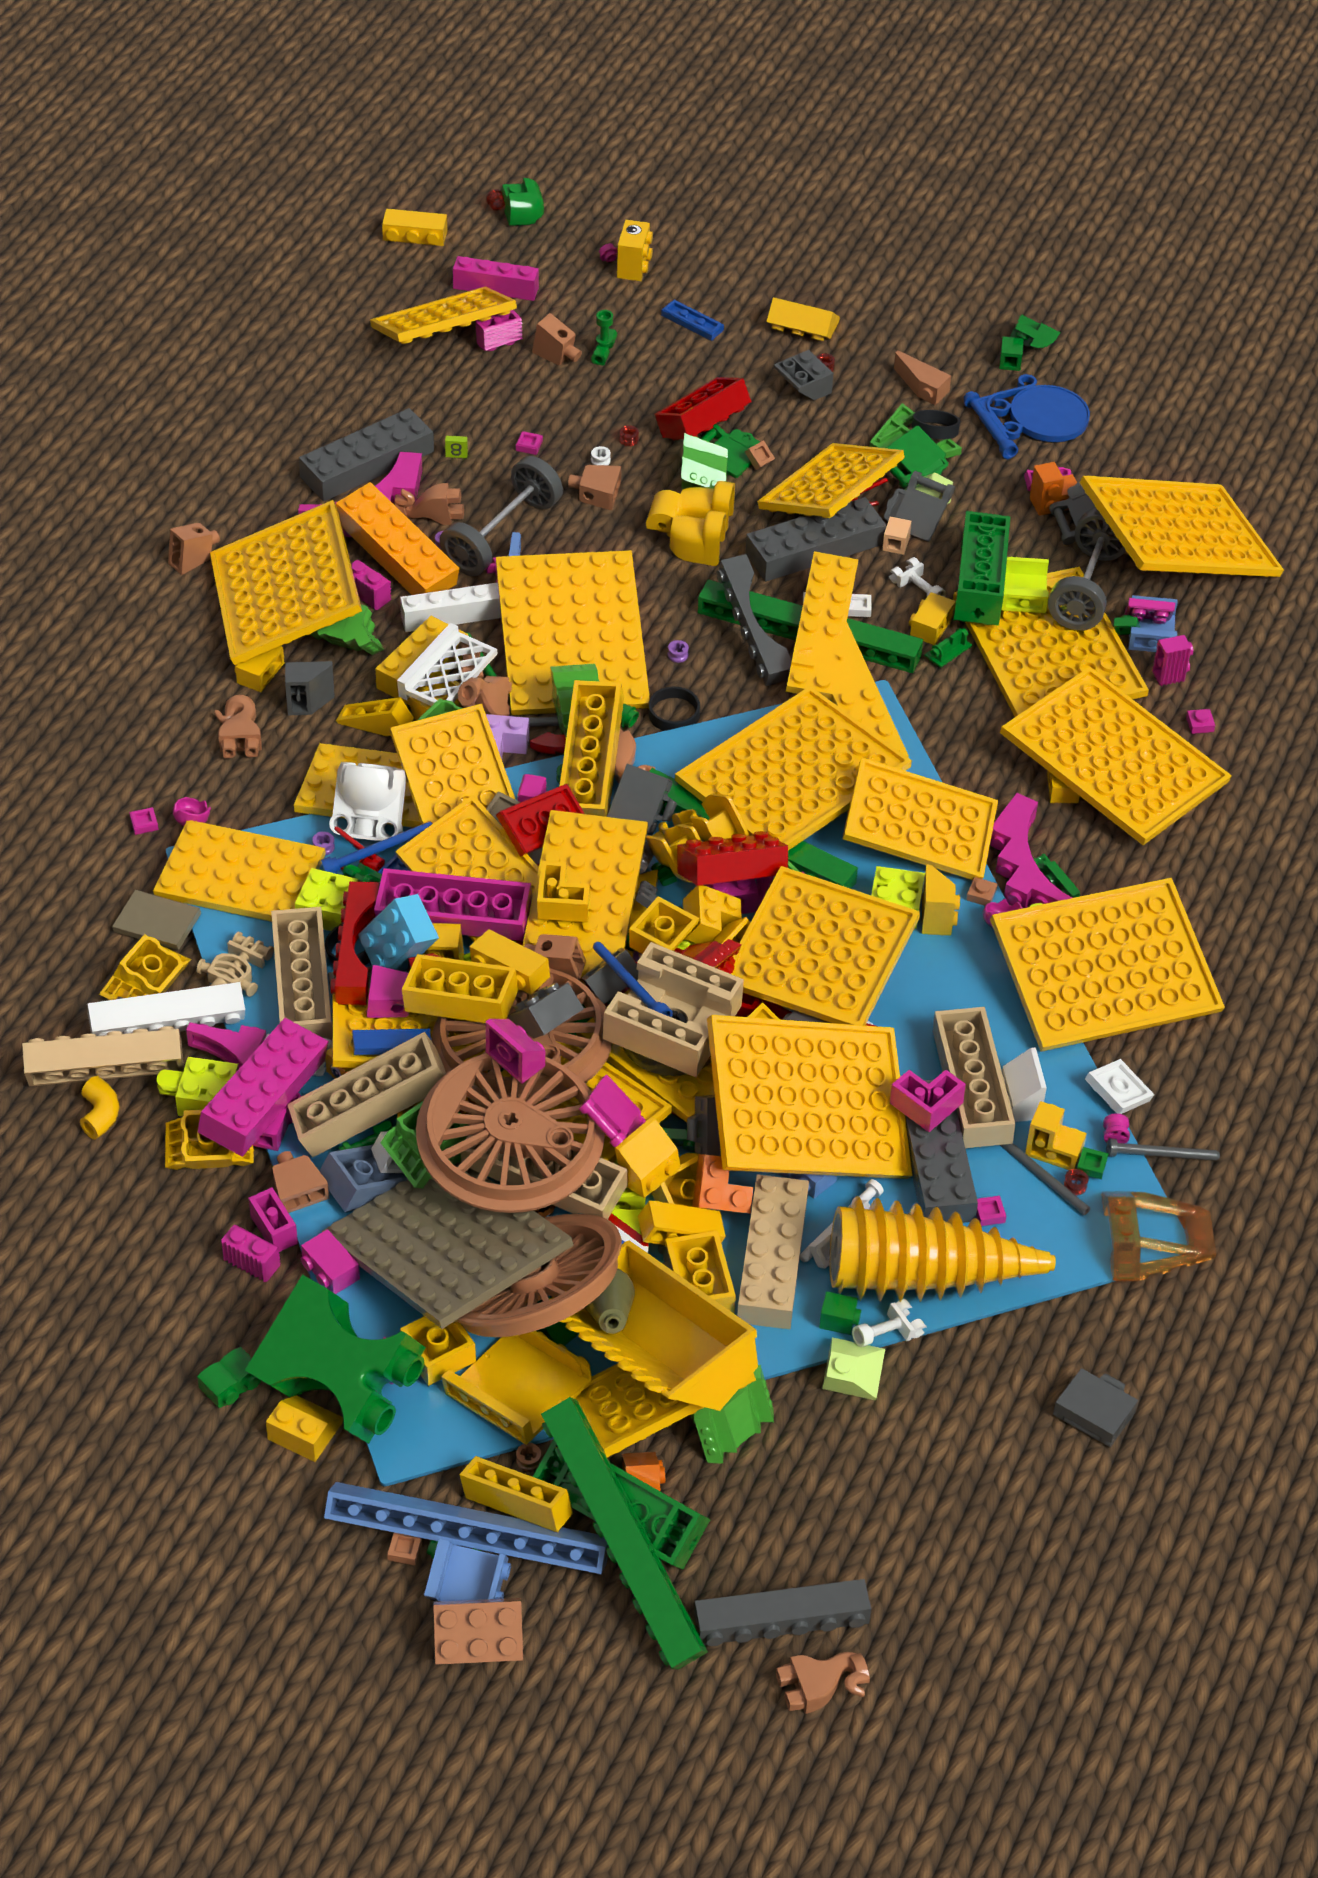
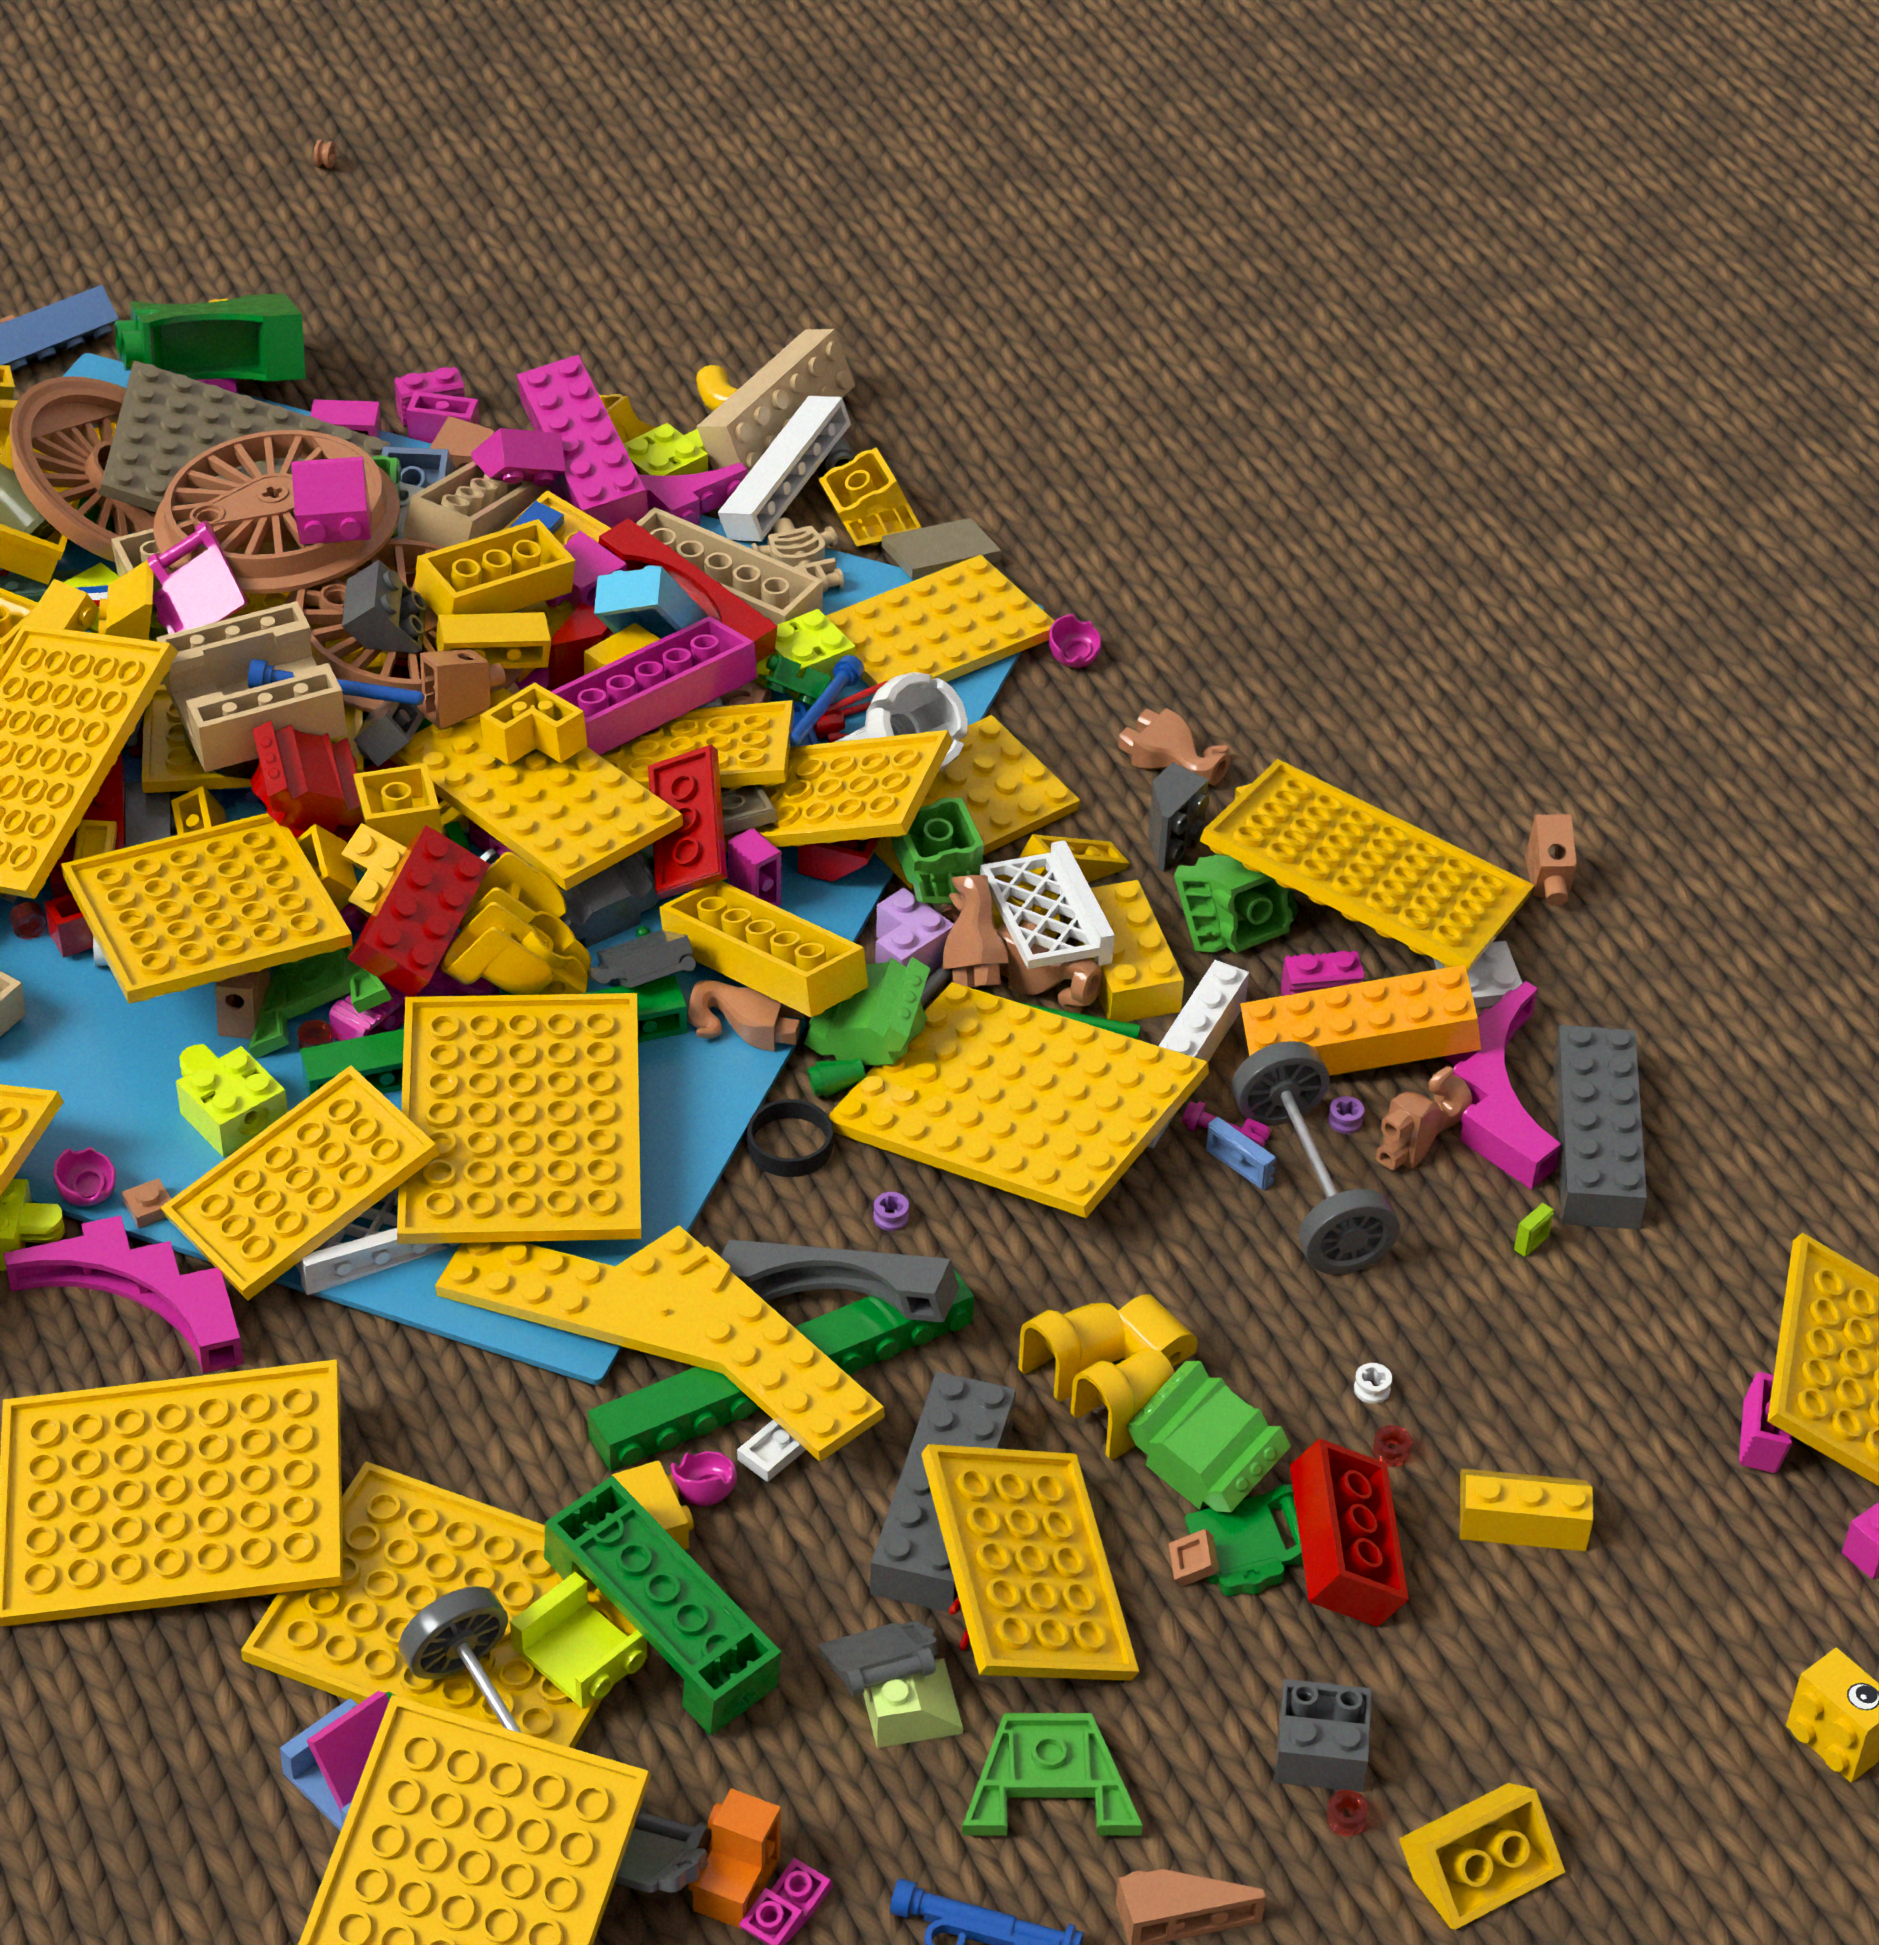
camera: 130 degrees right, 5 degrees down
(16, 1537) = (324, 154): none -> nougat bush
(143, 821) = (1112, 618): dark pink tile -> none
(227, 1378) = (318, 323): green brick -> none
(317, 1091) = (521, 456): none -> dark pink slope
(529, 443) = (1481, 1327): dark pink tile -> none
(555, 341) = (1680, 1471): nougat torso -> none
(597, 485) = (1301, 1329): nougat torso -> none
(605, 339) = (1638, 1539): green bar -> none
(618, 381) = (1525, 1509): none -> yellow slope
(692, 320) = (1616, 1715): blue tile -> none
(897, 535) = (856, 1596): light nougat brick -> none
(897, 610) = (704, 1477): none -> dark pink hair
(913, 574) = (778, 1543): white bar -> none
(920, 455) = (999, 1742): green piece -> none
(938, 903) = (168, 1113): yellow slope -> none
(949, 648) = (577, 1476): green hinge -> none
(951, 421) = (1080, 1801): black tyre -> none
(1056, 876) = (72, 1293): green hinge -> none
(1172, 660) = (247, 1703): dark pink brick -> none
(1200, 721) = (128, 1684): dark pink plate -> none

